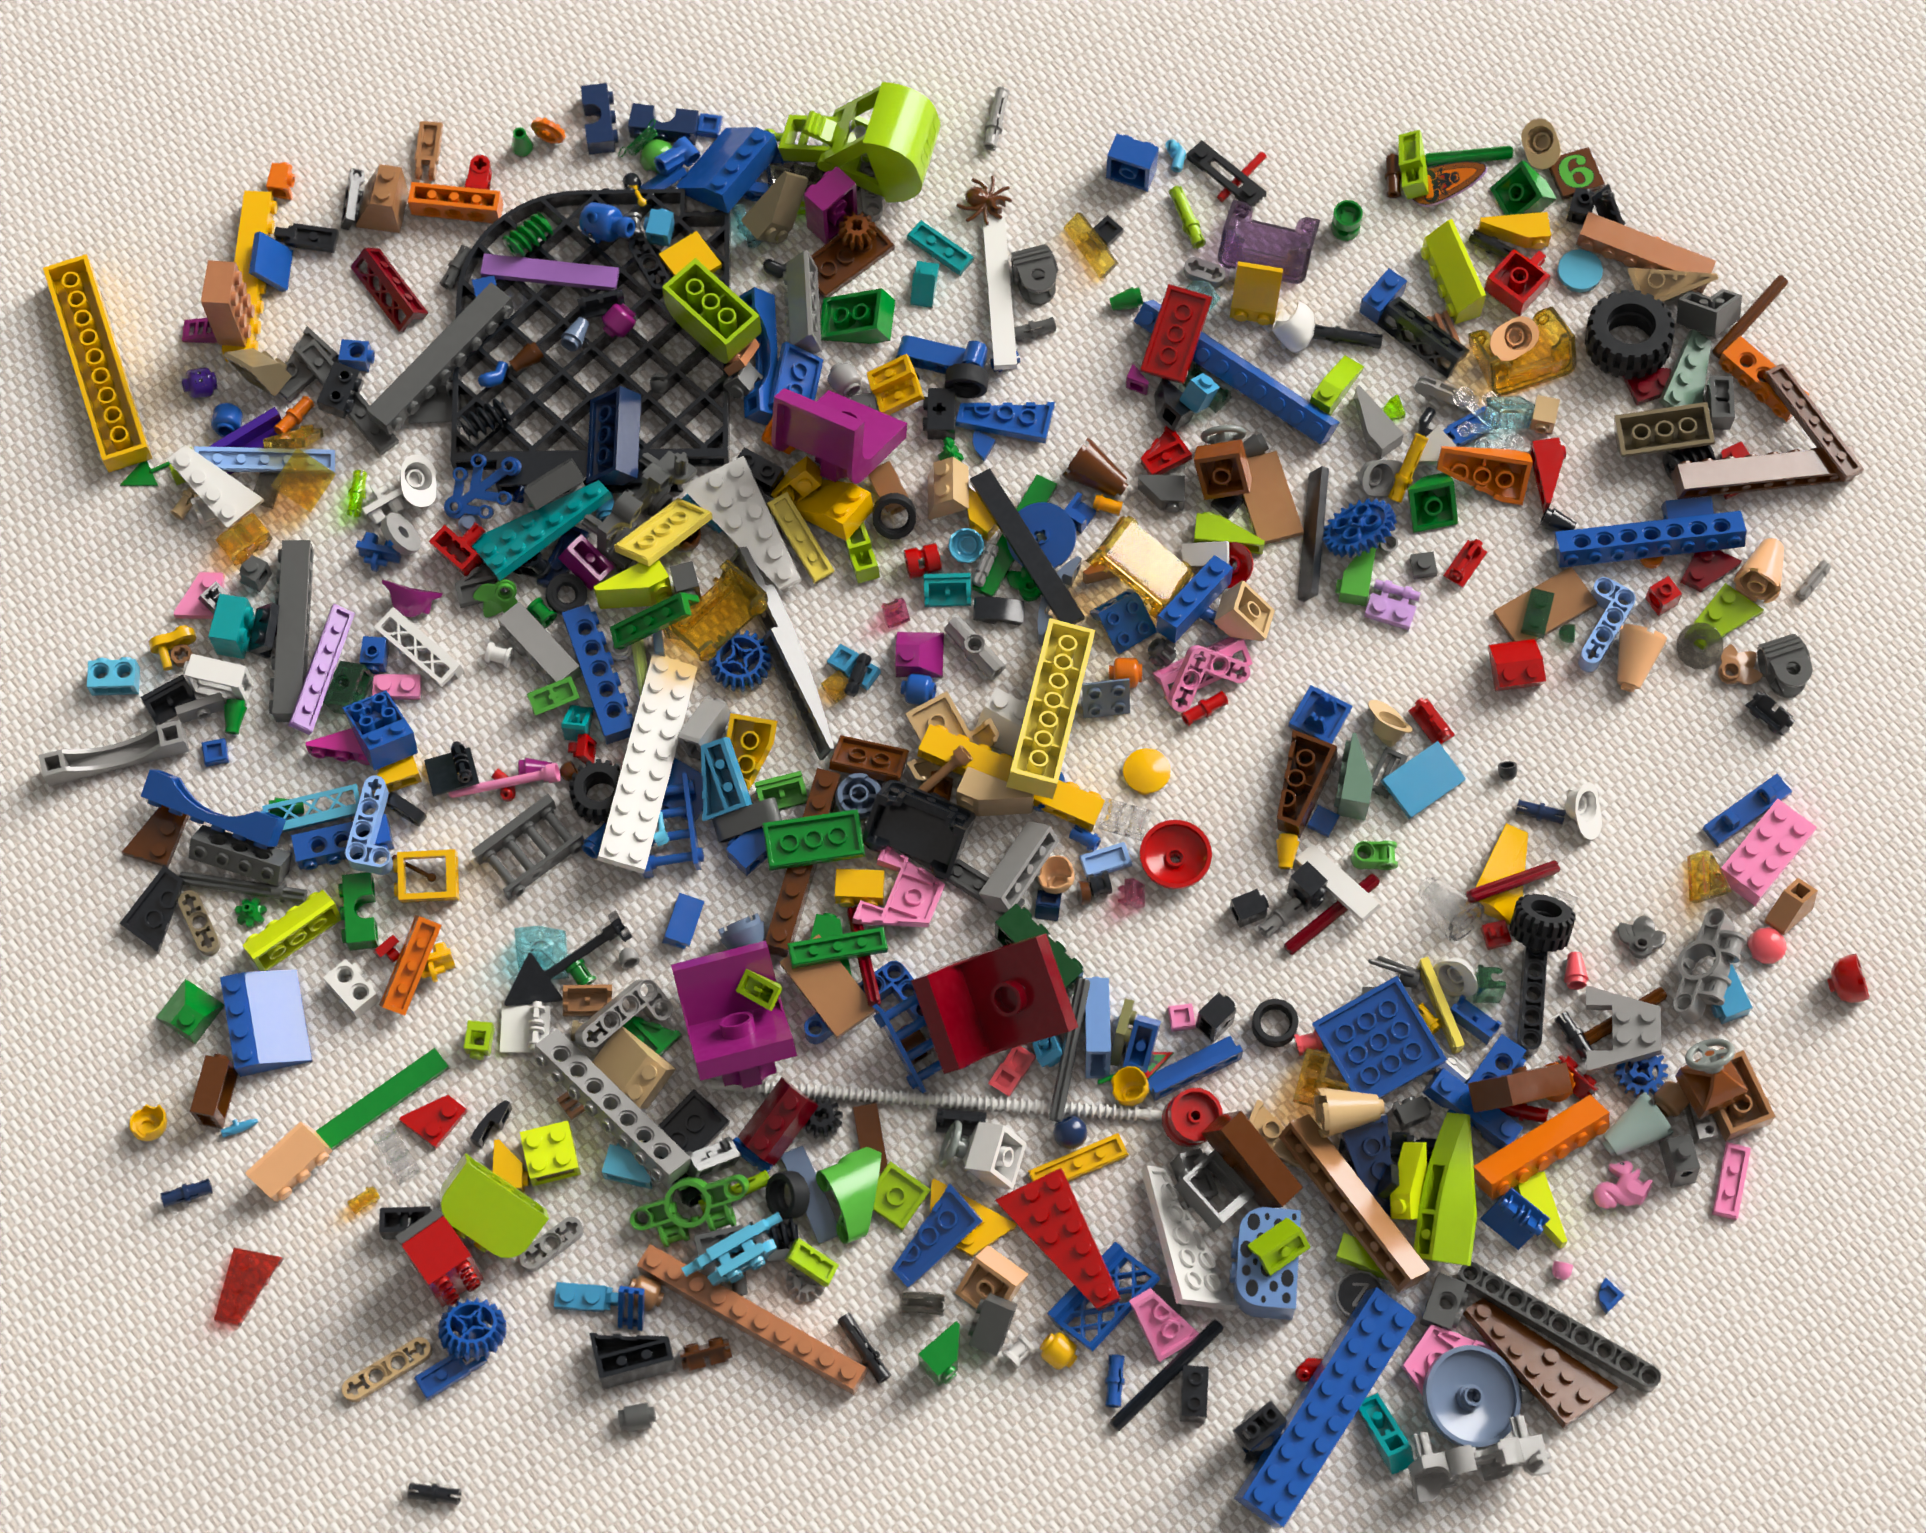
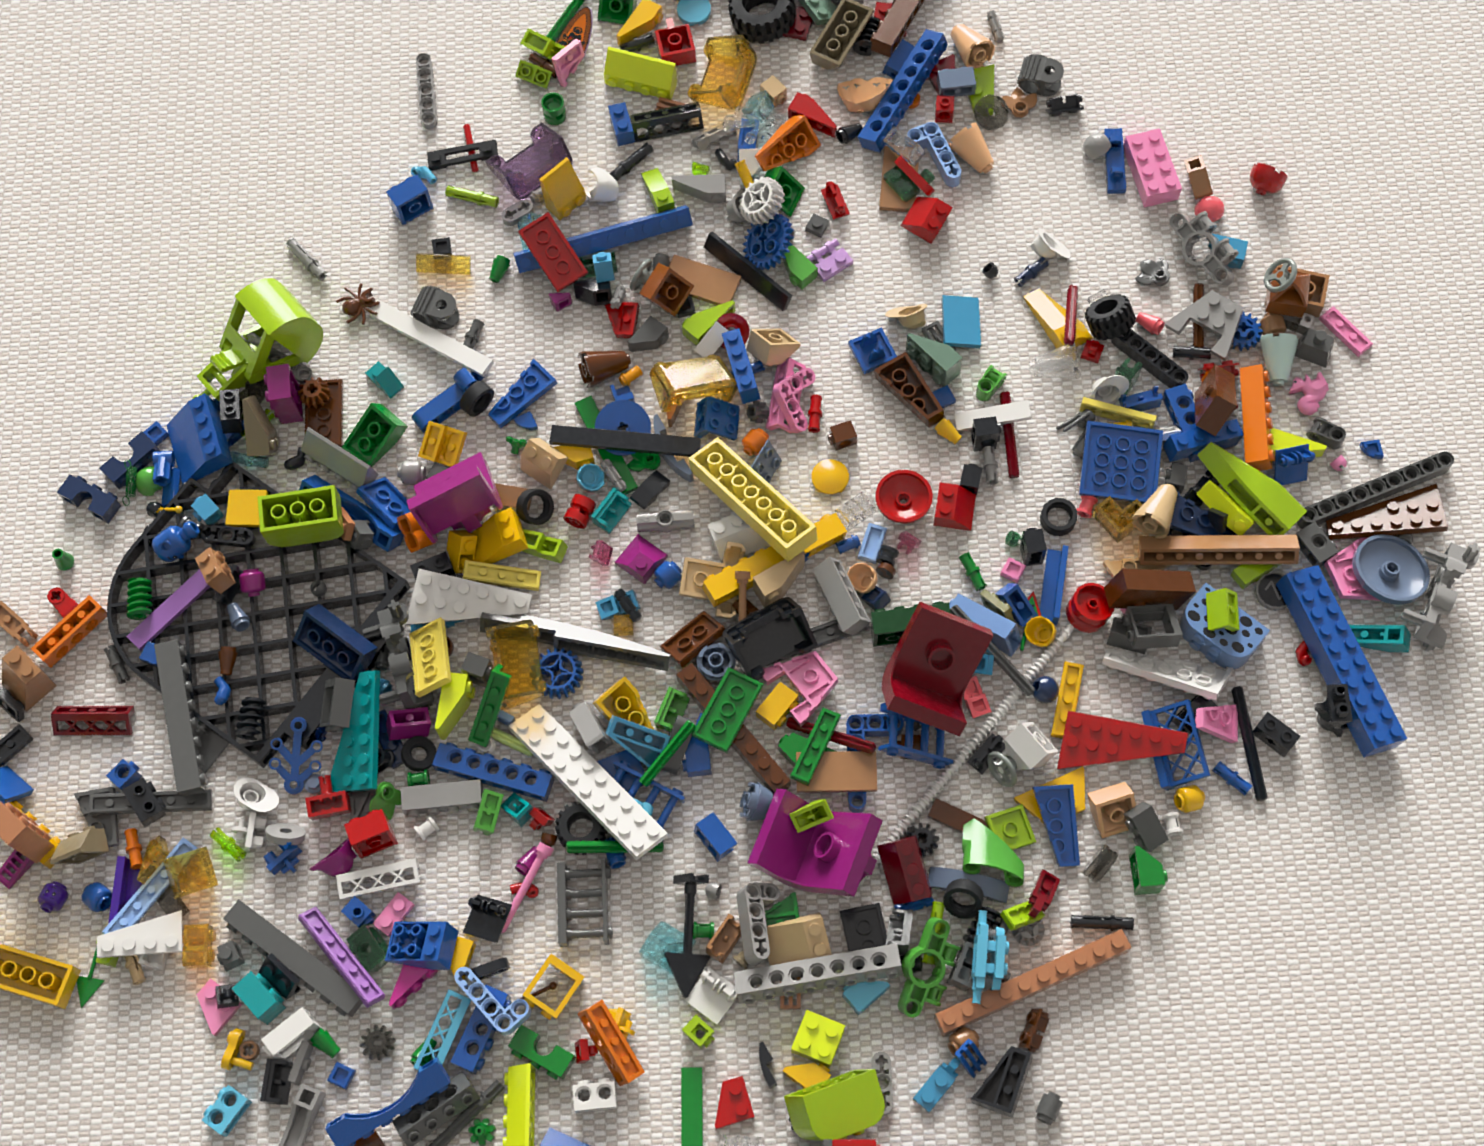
camera: 50 degrees left, 0 degrees up
(257, 760) = (384, 1036): none -> clear smoke gear
(454, 607) = (370, 833): none -> red slope
(548, 130) = (70, 535): orange gear -> none
(592, 823) = (602, 847): none -> green axle
(601, 278) = (215, 570): none -> medium nougat brick
(727, 814) = (667, 753): none -> green axle
(770, 169) = (230, 411): none -> black brick
(850, 1268) = (1043, 893): none -> dark red hinge
(940, 247) = (367, 353): teal tile -> none
(944, 402) = (485, 431): black brick -> none
(1147, 978) = (972, 571): none -> green pin
(1183, 431) = (617, 297): none -> light grey axle
(1200, 751) = (842, 435): none -> reddish brown brick
(1205, 912) = (954, 507): none -> red slope
(1211, 992) = (1012, 538): none -> clear green hinge
(1275, 79) = (429, 97): none -> light grey beam
(1373, 173) = (533, 74): none -> lime slope
(1393, 488) = (762, 190): none -> white gear
(1410, 193) = (567, 61): none -> bright pink wing
(1430, 721) = (925, 292): red hinge -> none
(1514, 338) = (712, 70): light nougat piece -> none
(1554, 619) = (914, 176): none -> red beam
(1579, 584) = (904, 146): none -> clear brick
(1586, 1230) = (1325, 433): none -> dark grey piece
(1612, 507) = (864, 97): none -> light nougat piece
(1702, 584) = (956, 82): none -> sand blue brick
(1705, 877) = (1144, 210): clear yellow wing -> none
(1746, 777) = (1096, 145): none -> light grey hair

